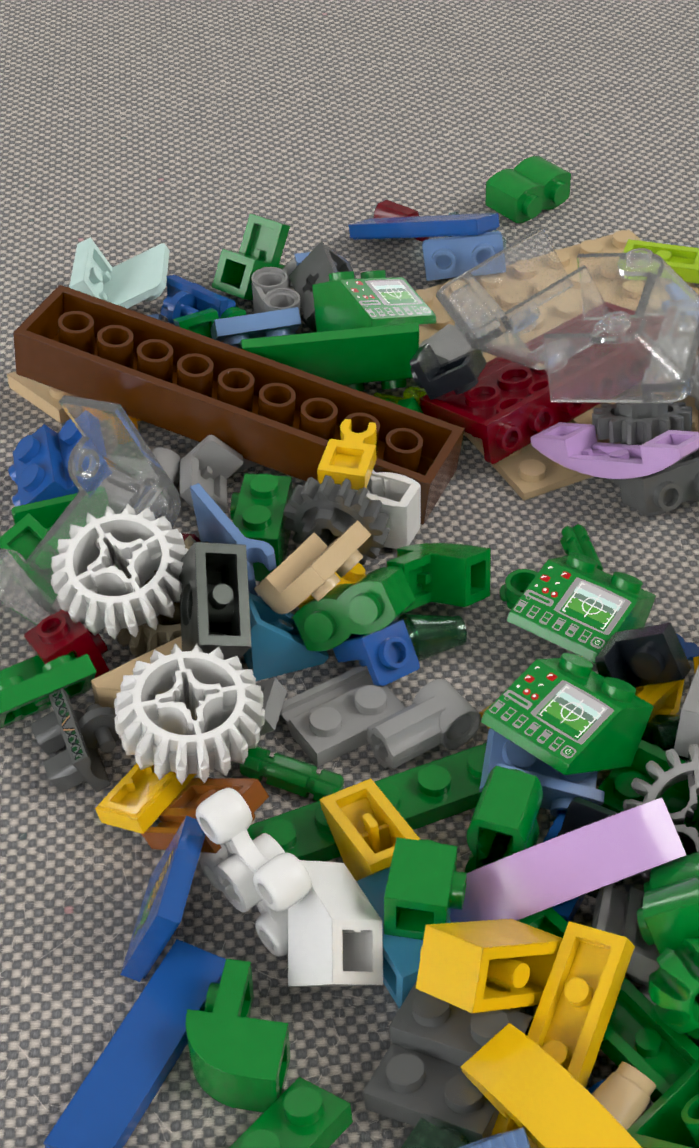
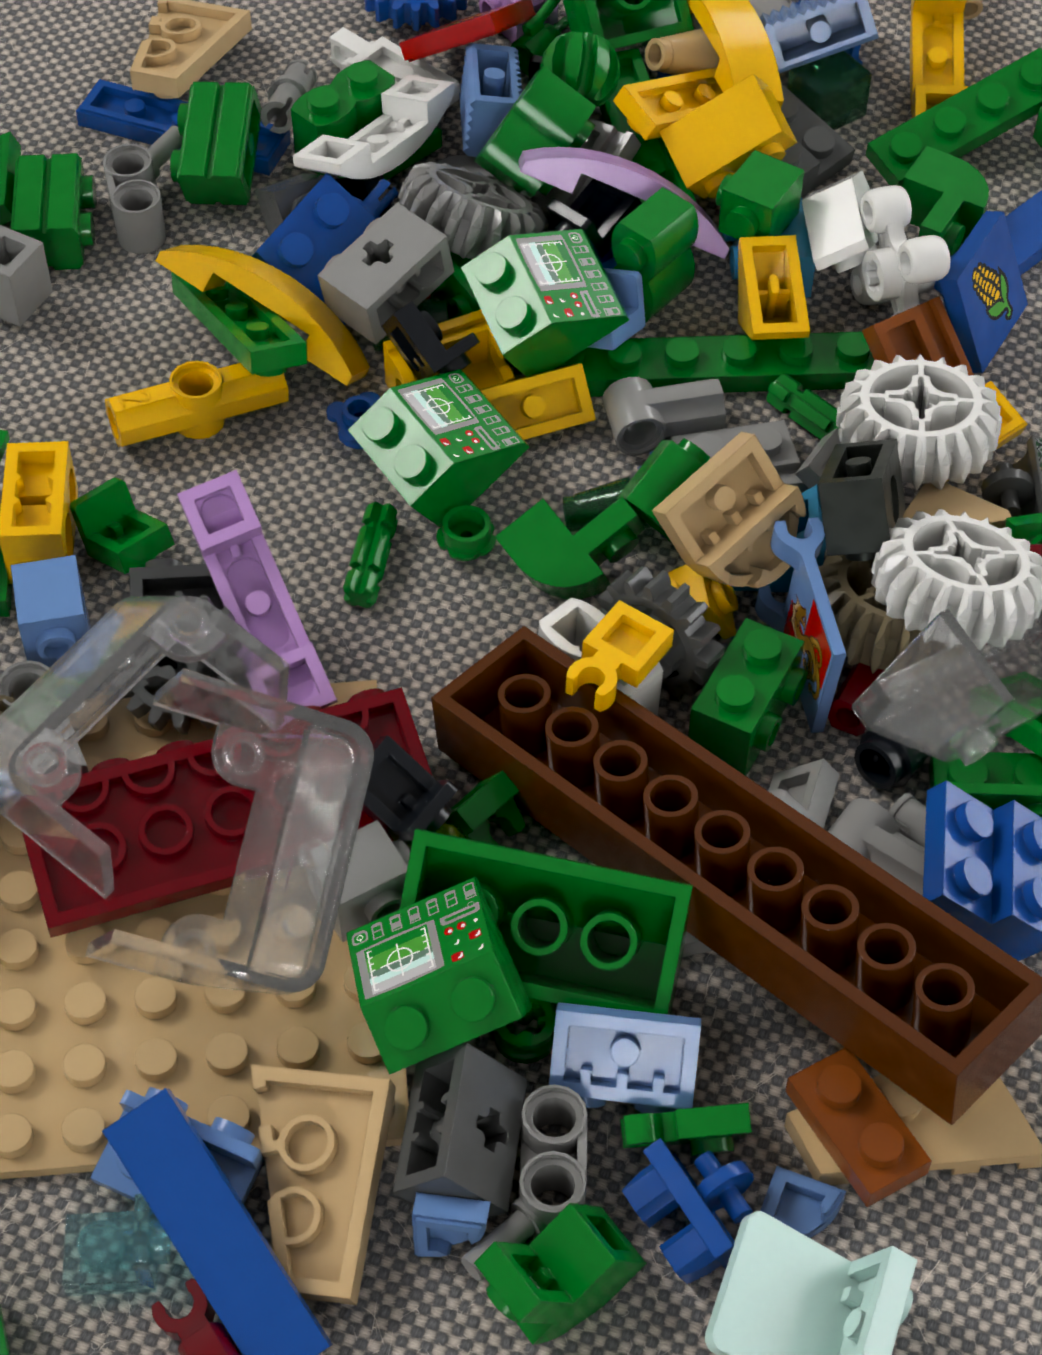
camera: 160 degrees left, 10 degrees up
(384, 255) = (323, 1172): none -> tan wing

